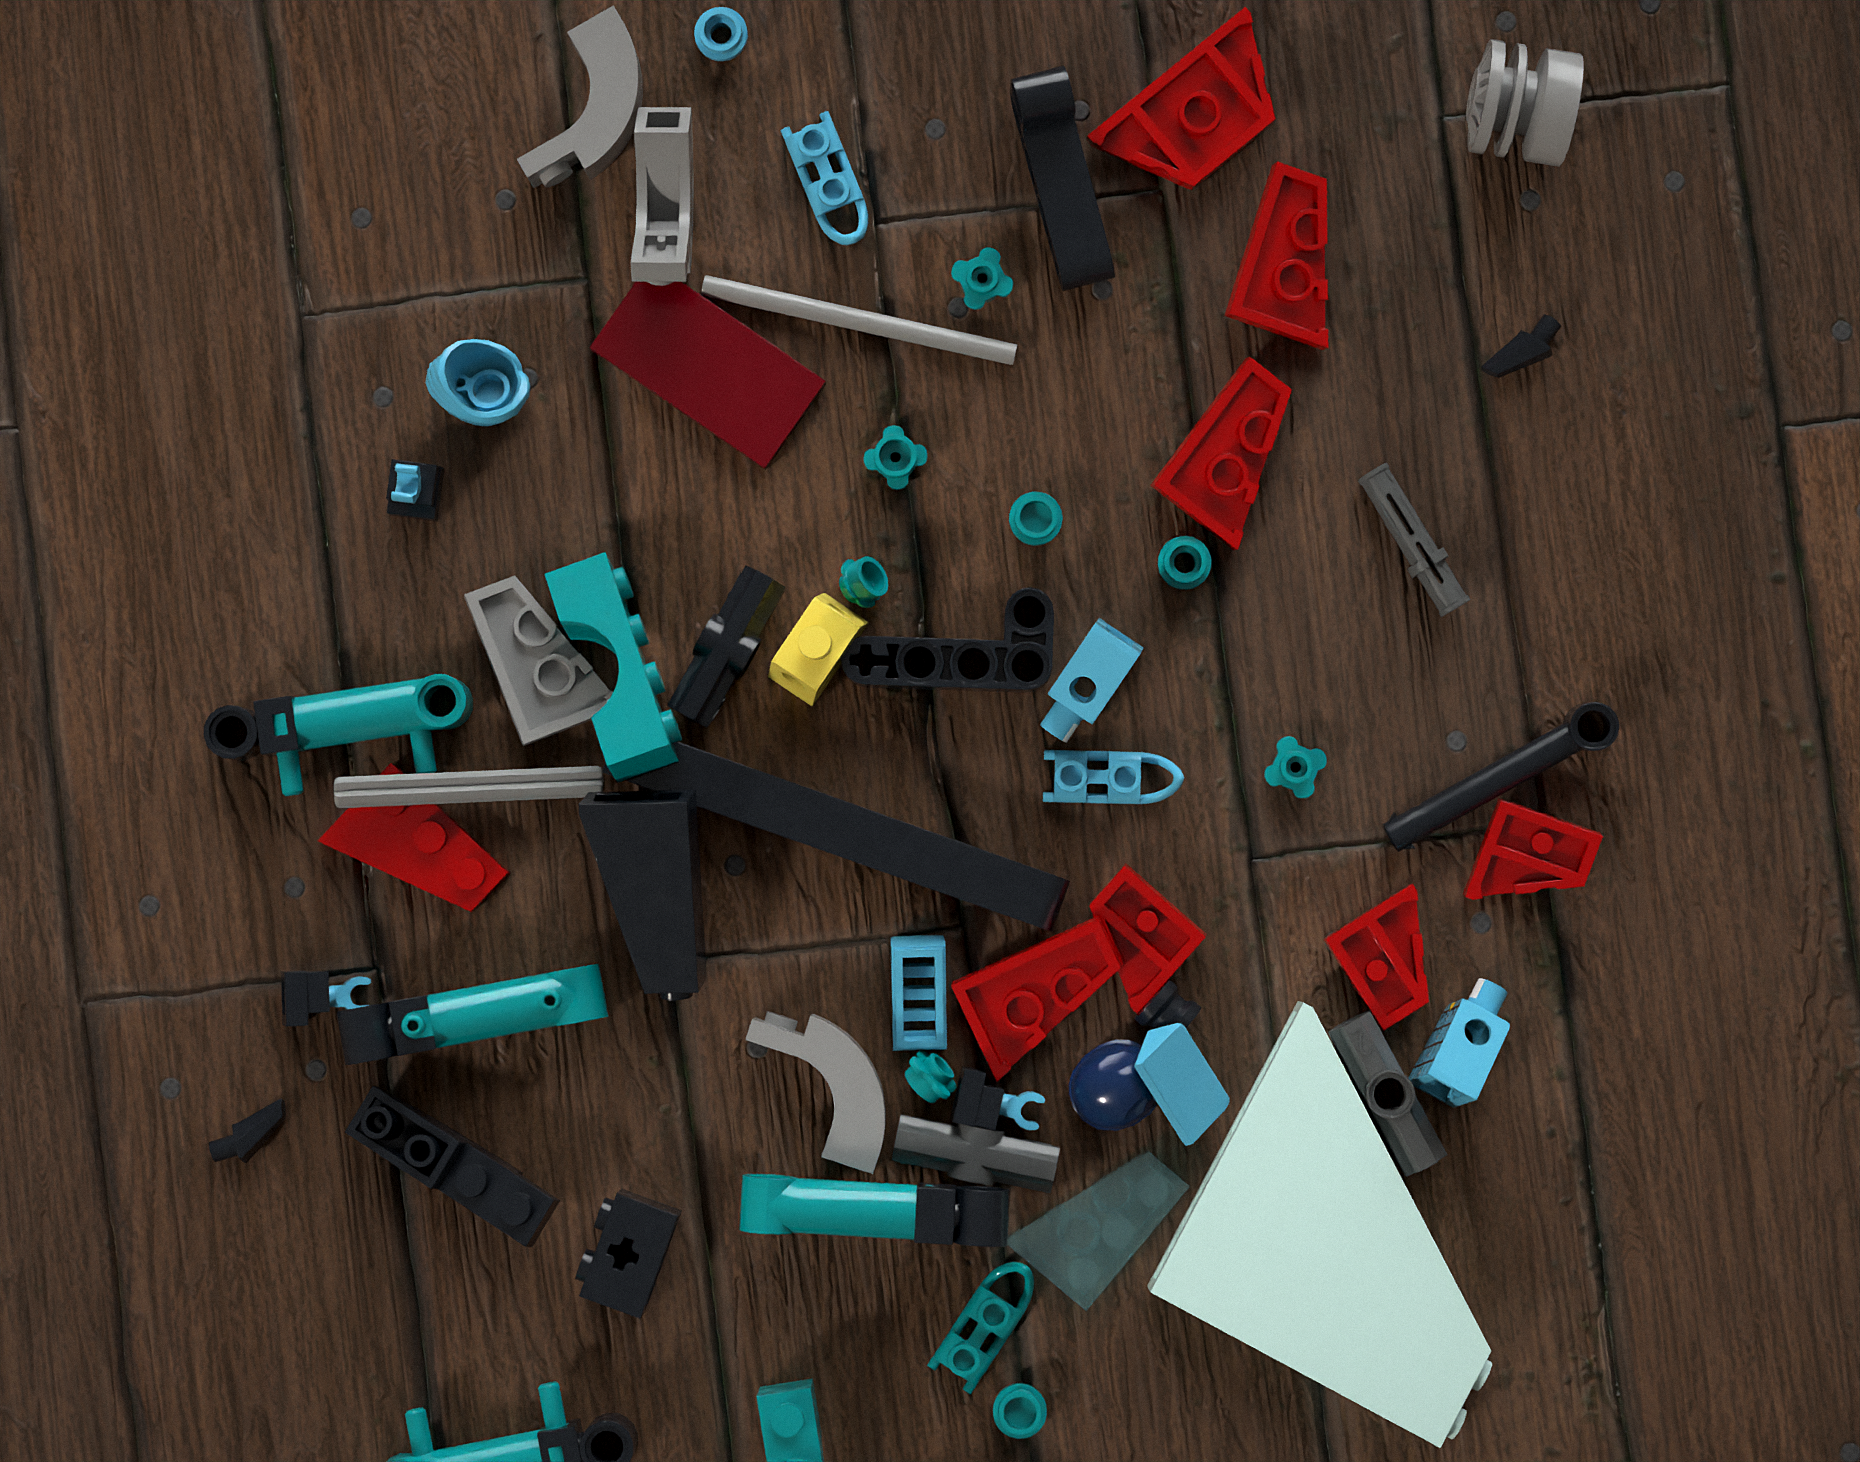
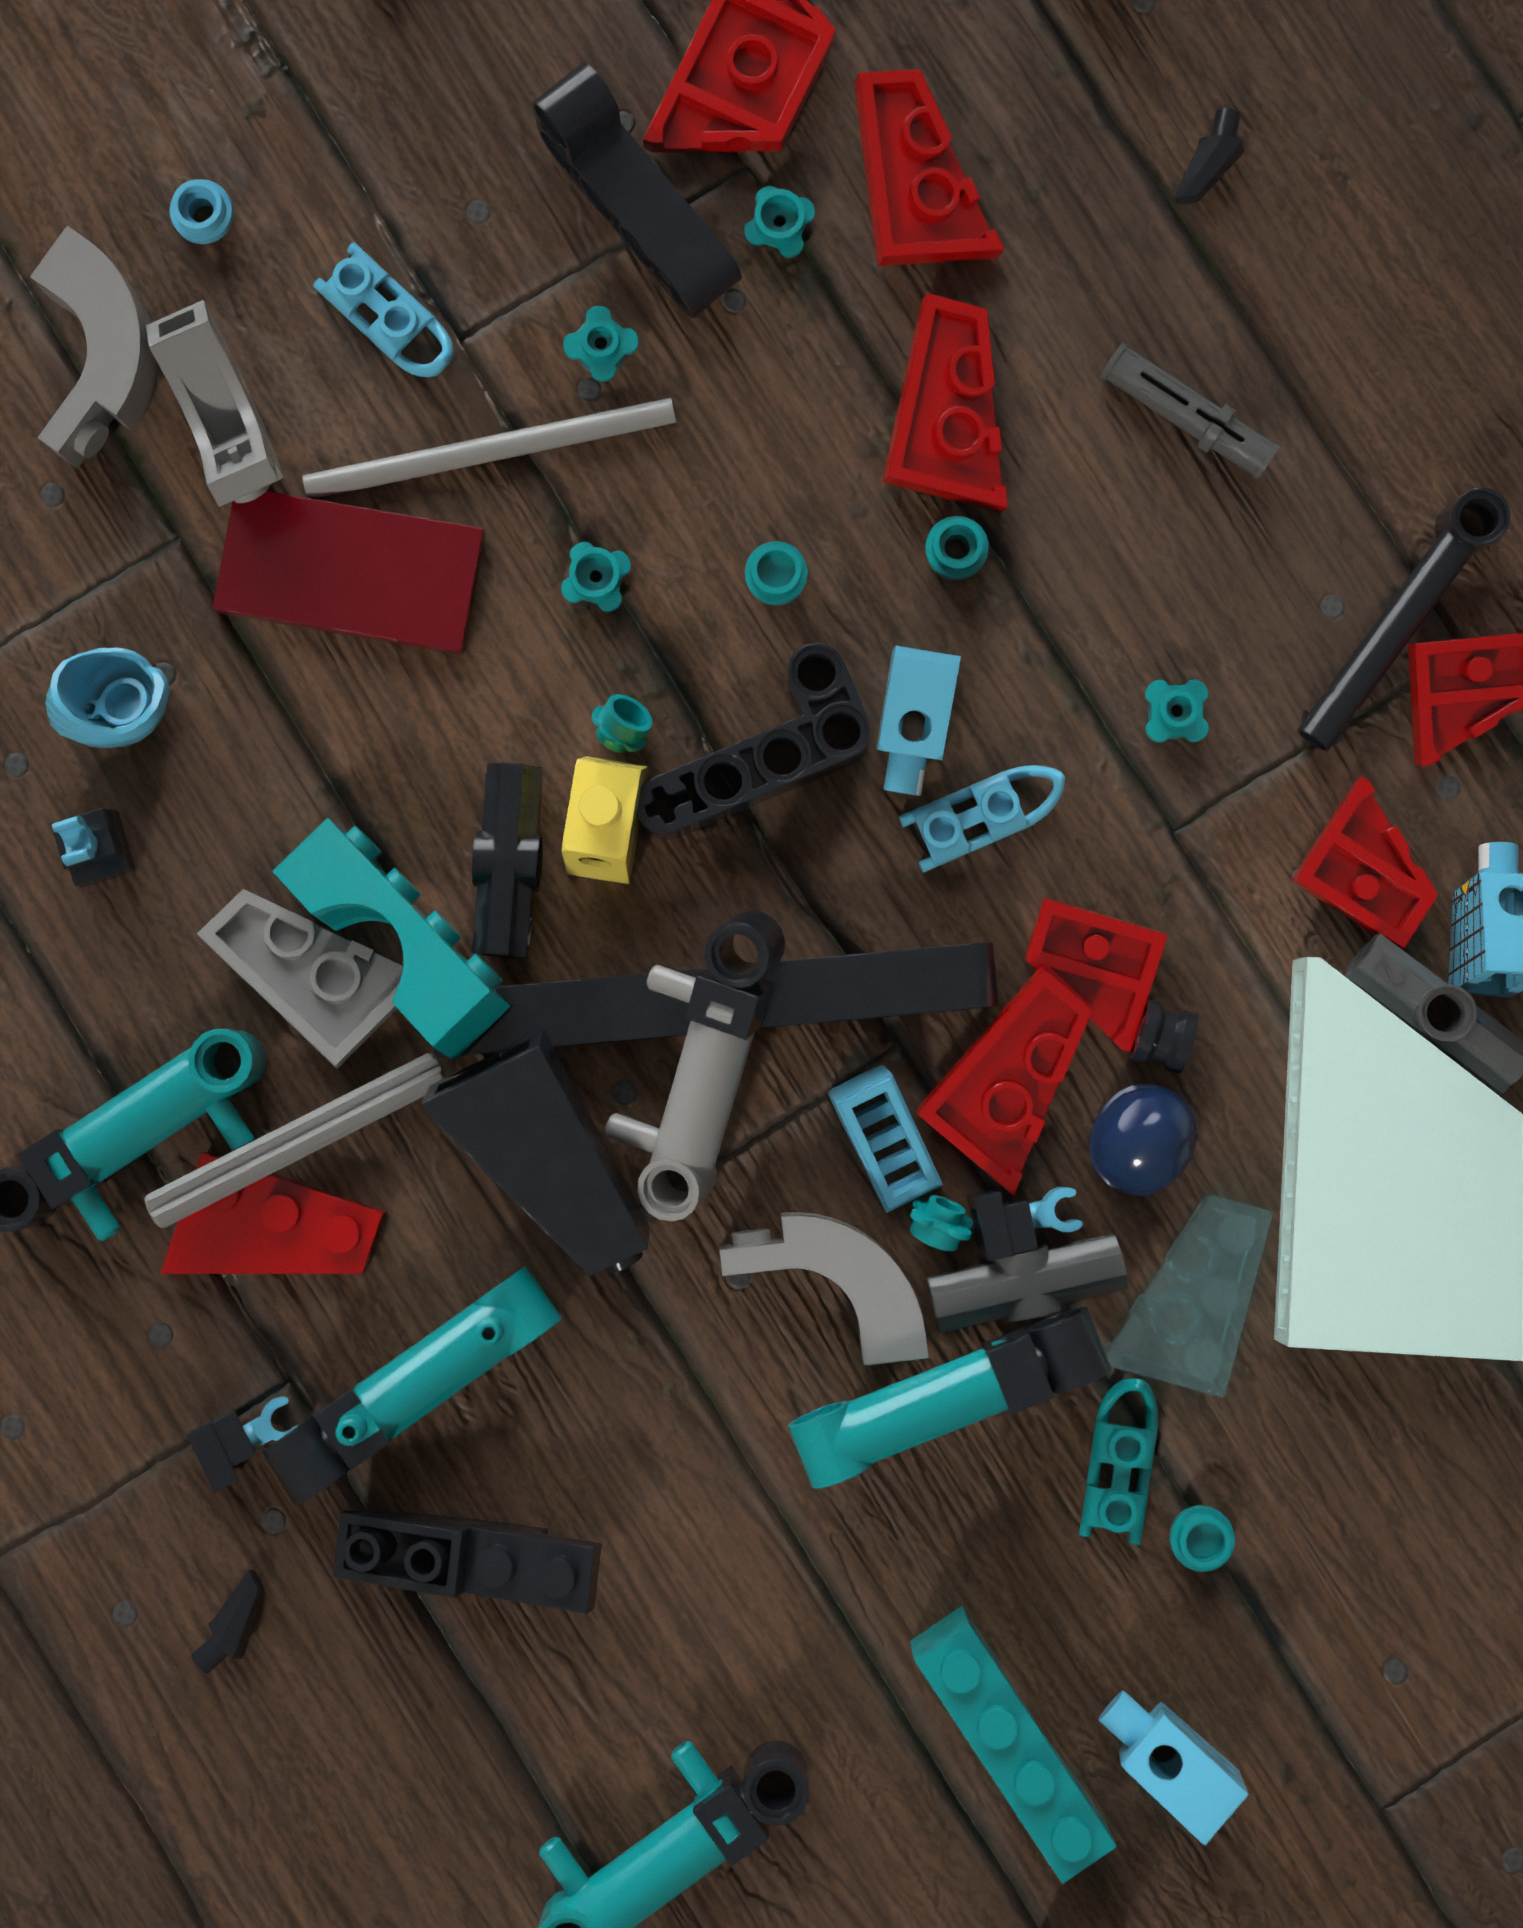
camera: 25 degrees left, 0 degrees up
(628, 1285) = (707, 1603): black brick -> none
(838, 840) = (725, 1012): none -> light grey piece
(1164, 230) = (785, 204): none -> teal plate
(1181, 1081) = (1214, 1102): medium azure slope -> none

